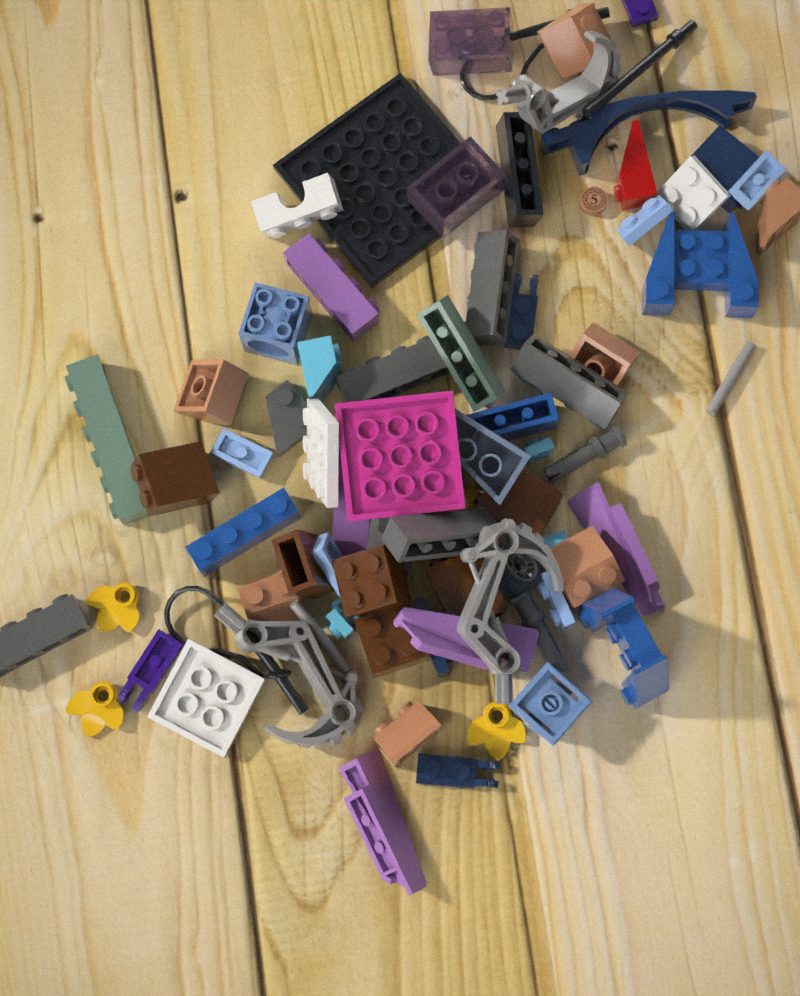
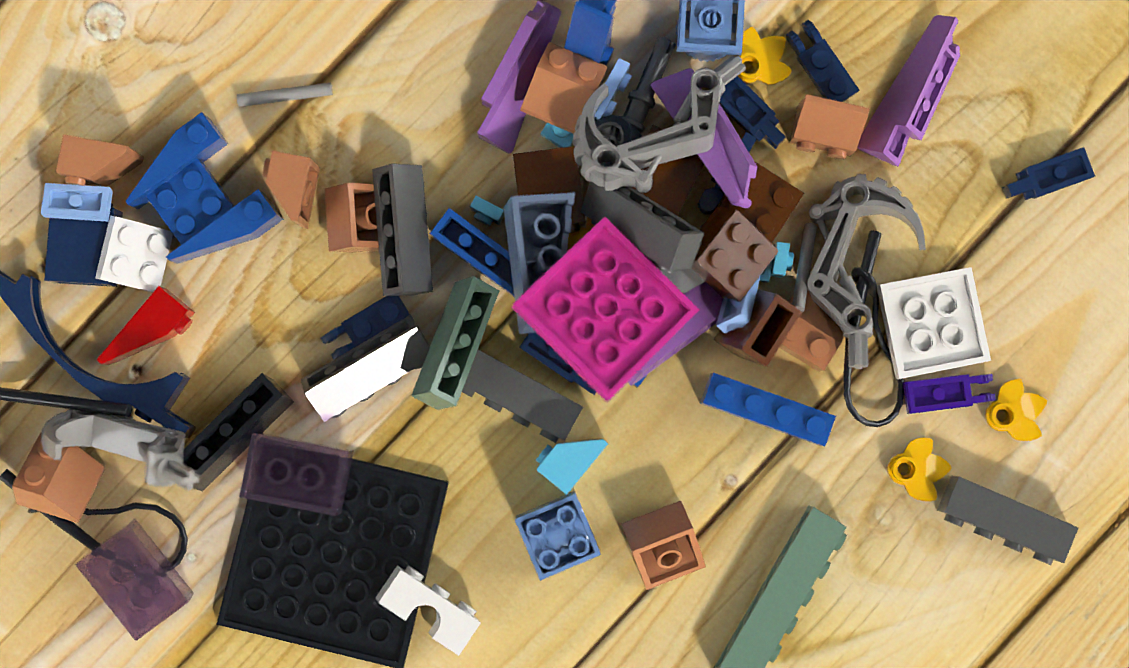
camera: 130 degrees left, 10 degrees up
(174, 478) = (772, 508): reddish brown brick -> none
(240, 873) = (1051, 175): none -> dark blue hinge
(242, 453) = (697, 471): light blue plate -> none
(286, 417) = (629, 457): dark grey wing -> none
(322, 451) = (650, 388): white plate -> none
(332, 287) = (479, 516): medium lavender brick -> none
(462, 689) = (751, 112): none -> dark blue hinge
(593, 200) = (206, 344): nougat tile -> none
(596, 448) = (444, 162): dark grey pin -> none
(640, 223) = (193, 279): light blue plate -> none
(657, 329) = (293, 183): none -> nougat slope

